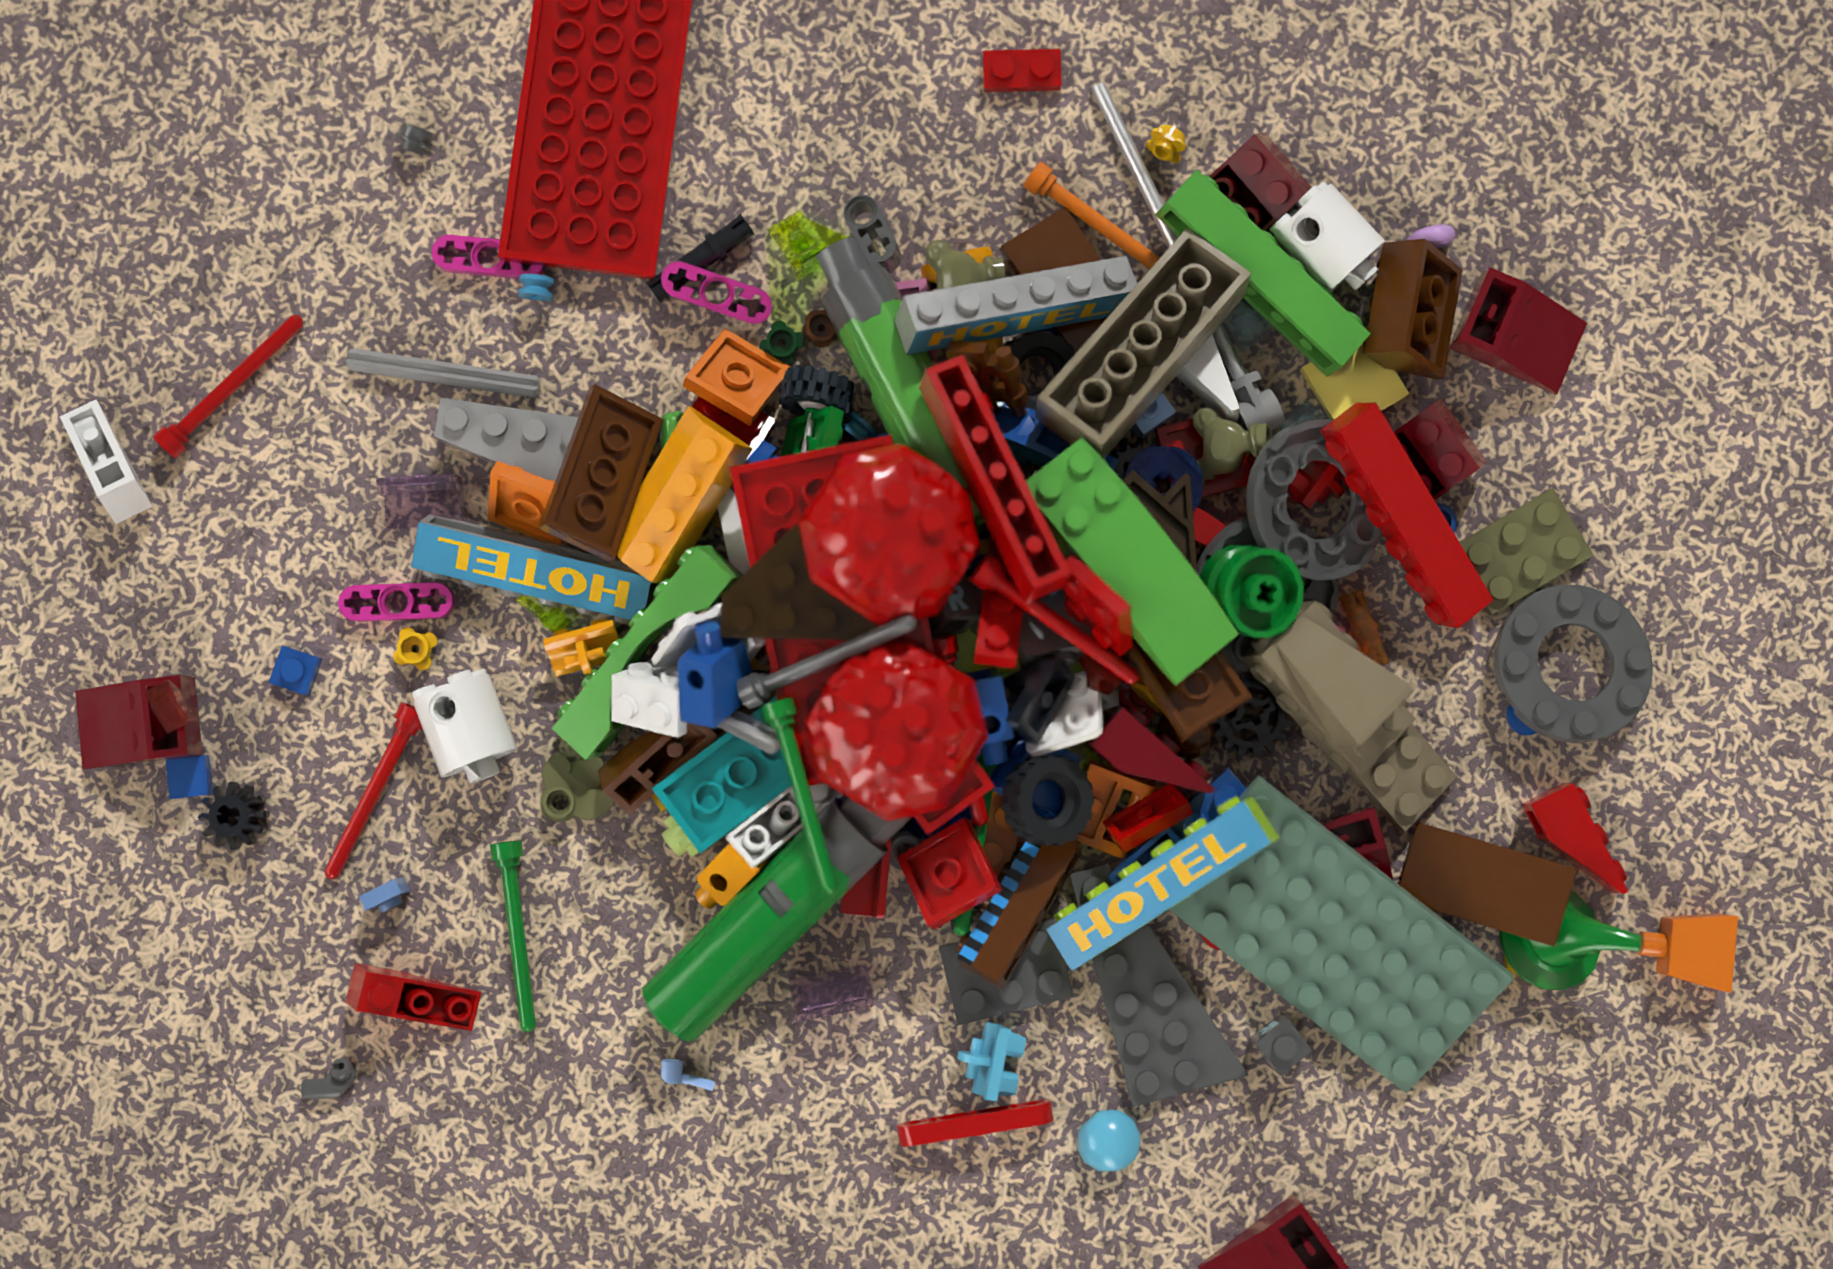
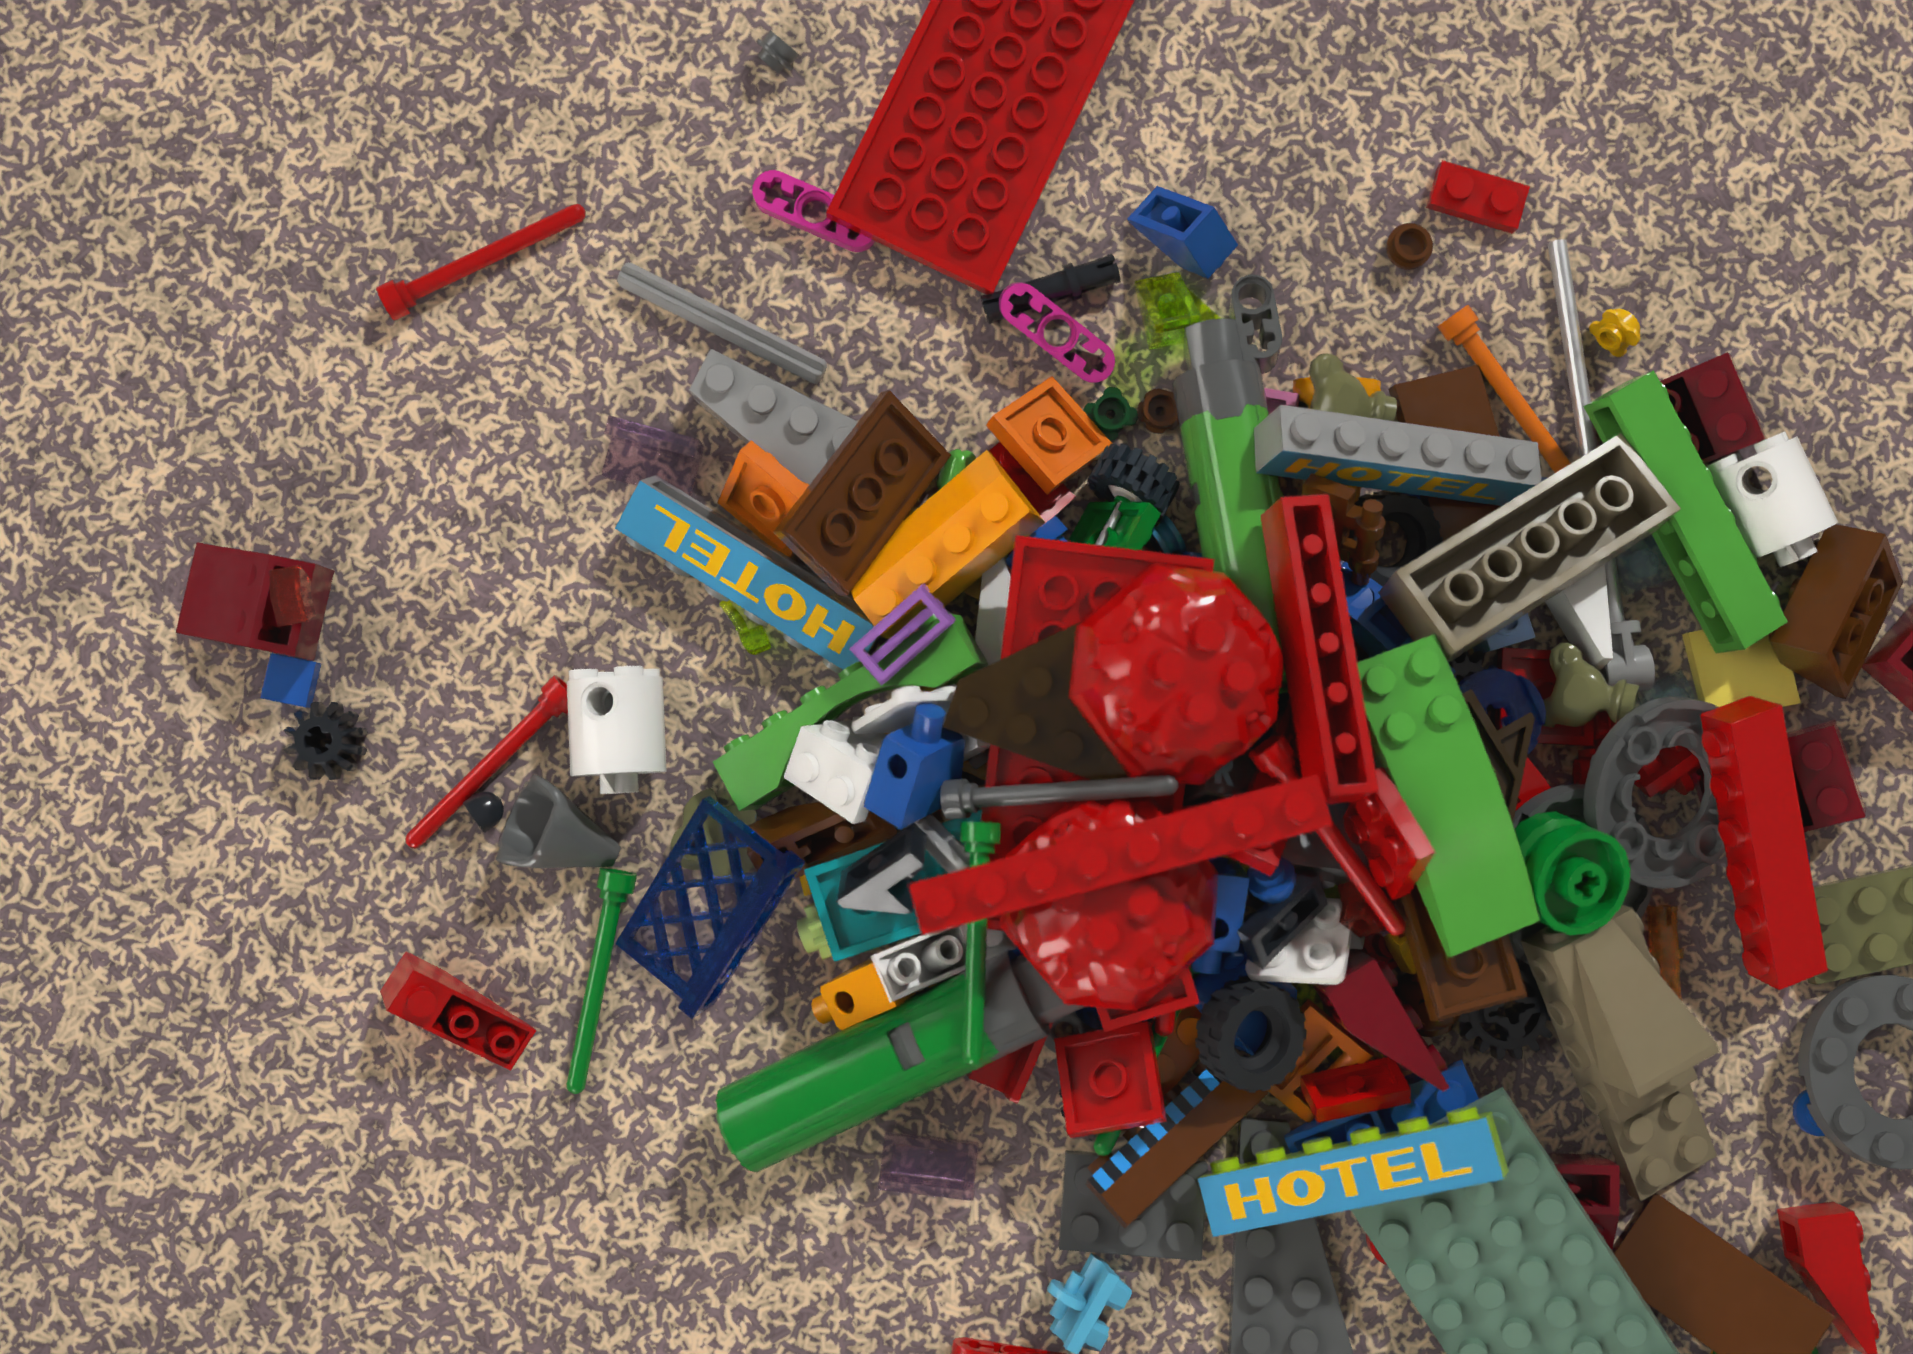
camera: 15 degrees right, 0 degrees up
(105, 462) = (314, 299): white slope -> none
(295, 670) = (448, 600): blue plate -> none
(334, 1084) = (337, 1079): dark grey arm -> none
(367, 592) = (557, 540): dark pink beam -> none
(382, 828) = (485, 809): none -> black hinge
(385, 896) = (464, 888): medium blue plate -> none
(404, 652) = (586, 607): yellow plate -> none
(442, 827) = (552, 832): none -> dark grey hat
(536, 287) = (856, 261): dark azure bush -> none
(580, 648) = (775, 682): light orange hips -> none
(613, 863) = (744, 921): none -> clear blue fence
(673, 1074) = (719, 1197): light blue hand -> none
(684, 545) = (934, 607): none -> medium lavender tile
(715, 770) = (883, 875): none -> black slope
(793, 176) = (1184, 230): none -> blue slope
(884, 688) = (1120, 854): none -> red plate
(979, 128) = (1409, 246): none -> reddish brown plate
(1024, 675) = (1274, 887): none -> blue plate
(1437, 235) = (1896, 533): lavender piece -> none

